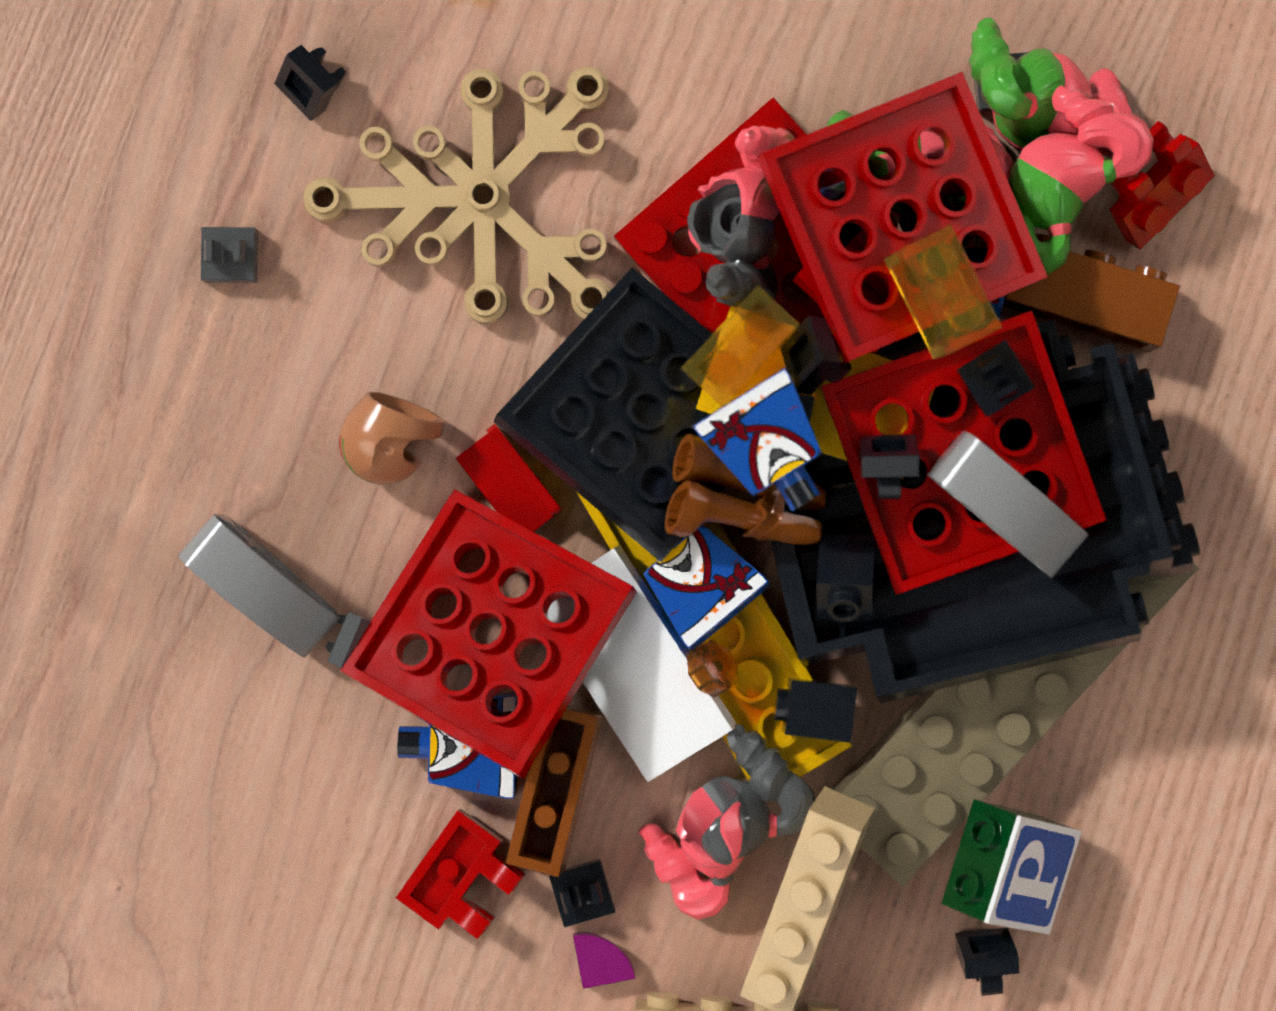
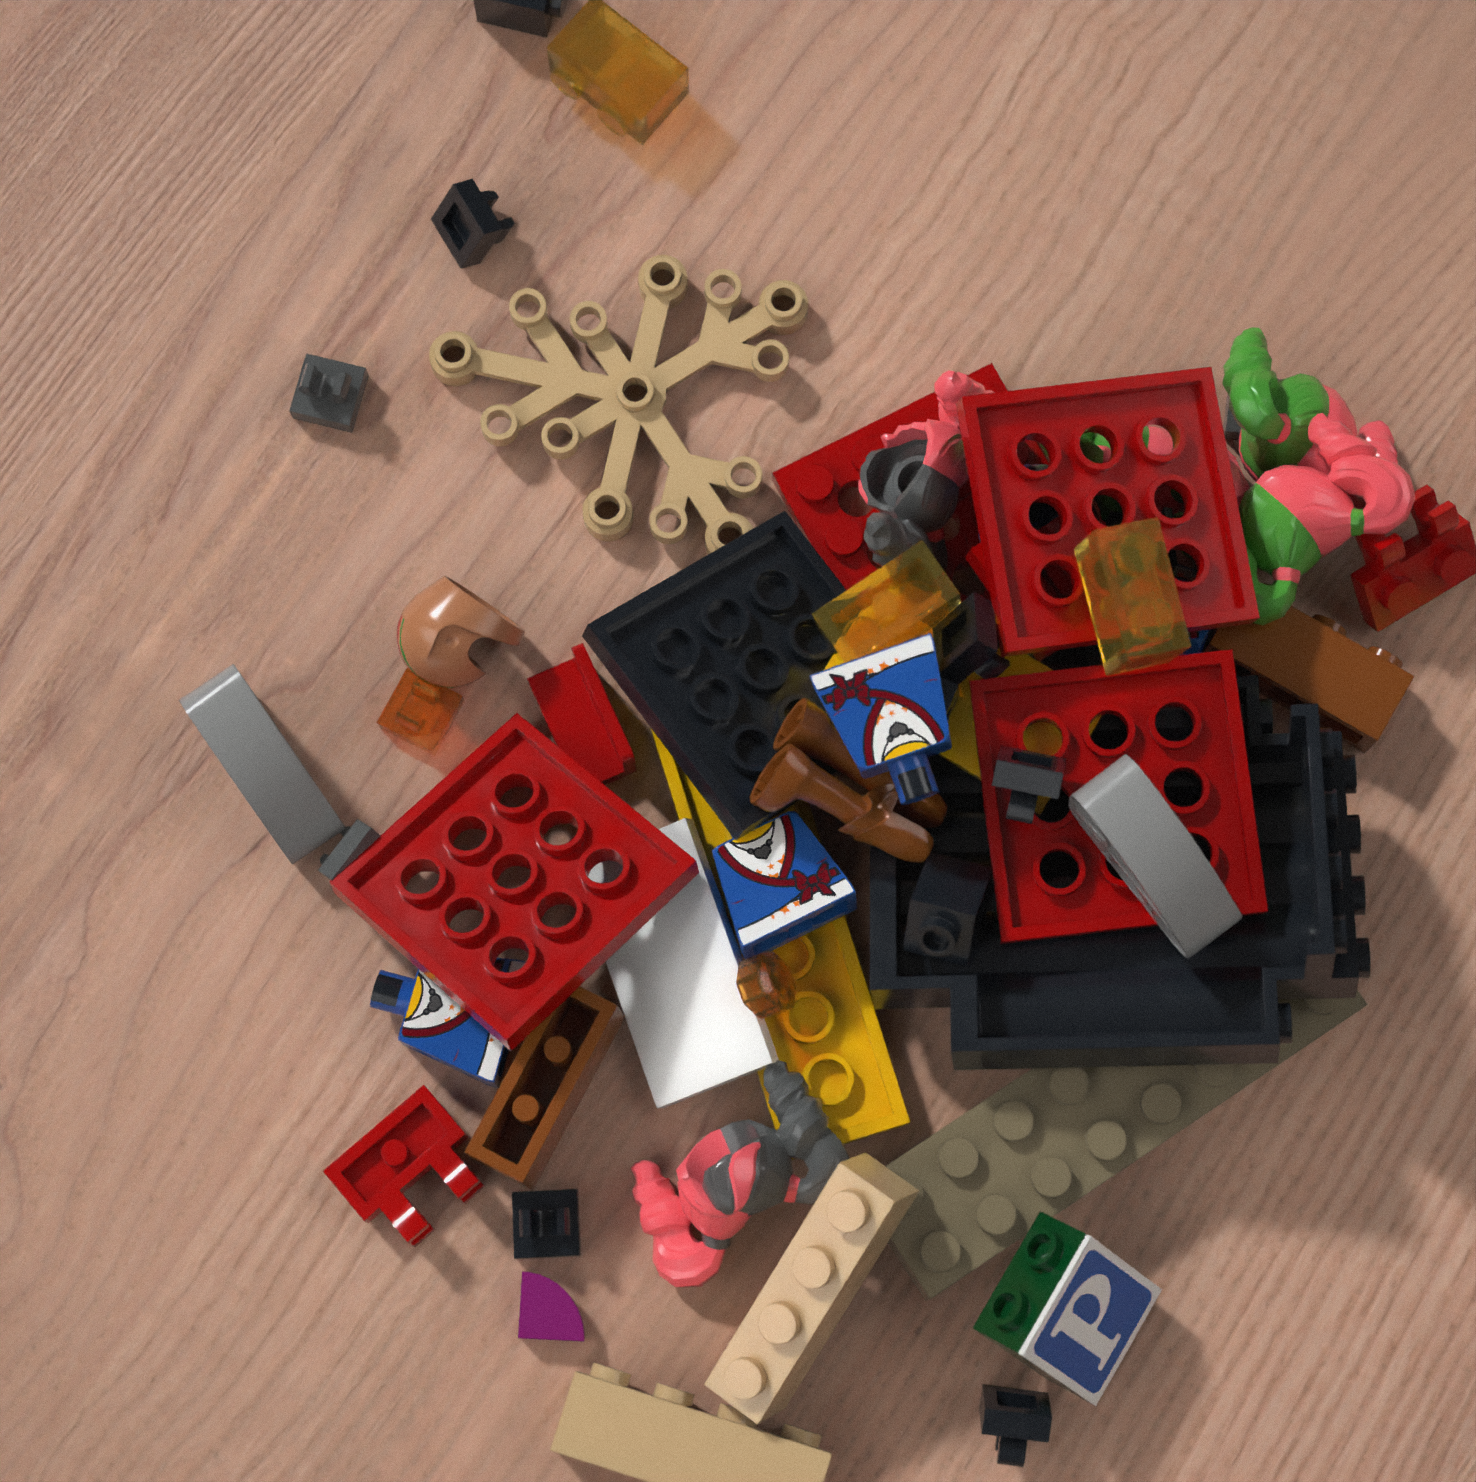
camera: 10 degrees right, 10 degrees down
(375, 506) = (420, 712): none -> clear orange tile
(816, 709) = (877, 1062): black brick -> none
(995, 378) = (1172, 714): black tile -> none

